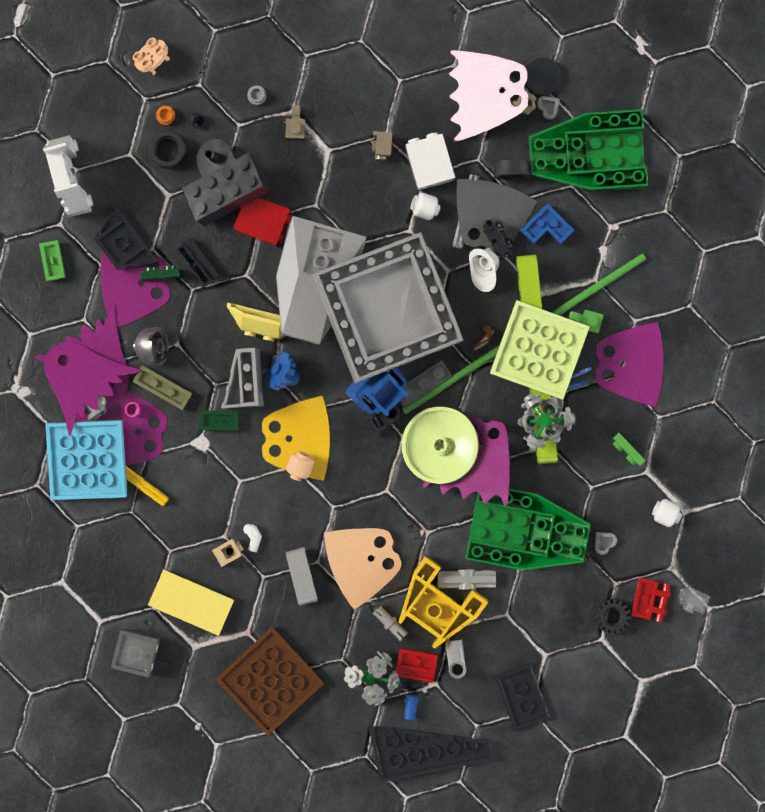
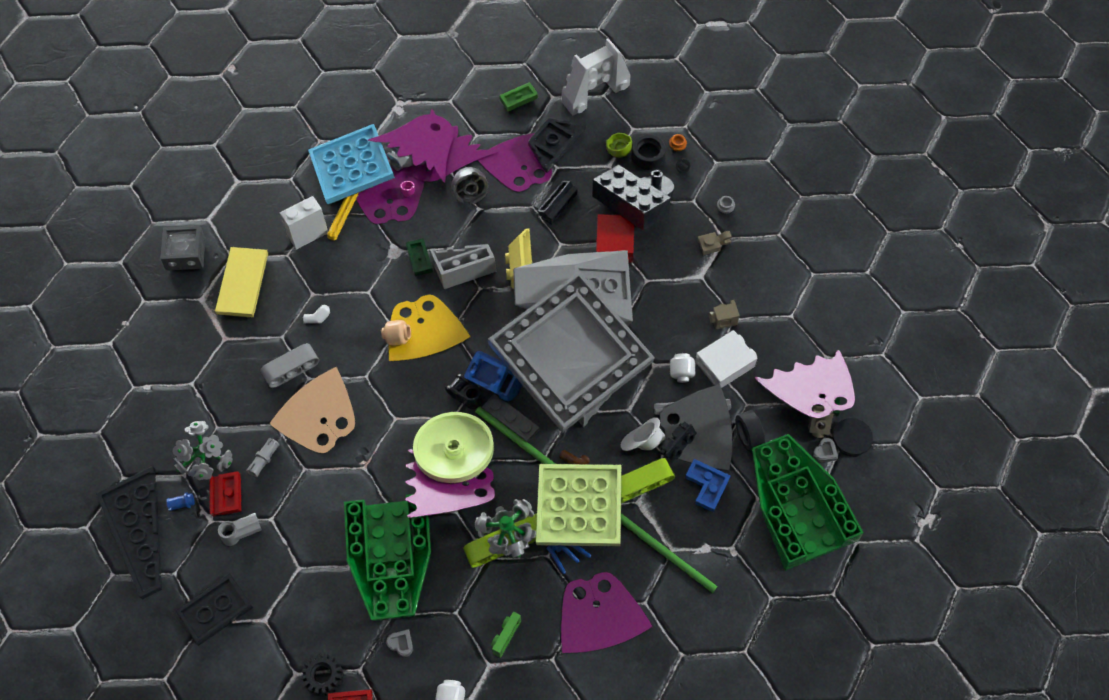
camera: 65 degrees right, 25 degrees down
(149, 524) = (304, 222): none -> white brick
(151, 55) = (718, 112): light nougat plate -> none
(151, 177) = (619, 145): none -> lime hair
(152, 274) = (539, 180): dark green plate -> none
(162, 387) = (434, 205): olive plate -> none
(221, 555) = (296, 296): tan brick -> none
(270, 681) = (180, 368): reddish brown plate -> none
(282, 372) = (480, 293): blue plant -> none
(434, 608) = (286, 490): yellow wedge -> none
(466, 579) = (325, 515): light grey piece -> none
(589, 319) = (628, 555): bright green plate -> none

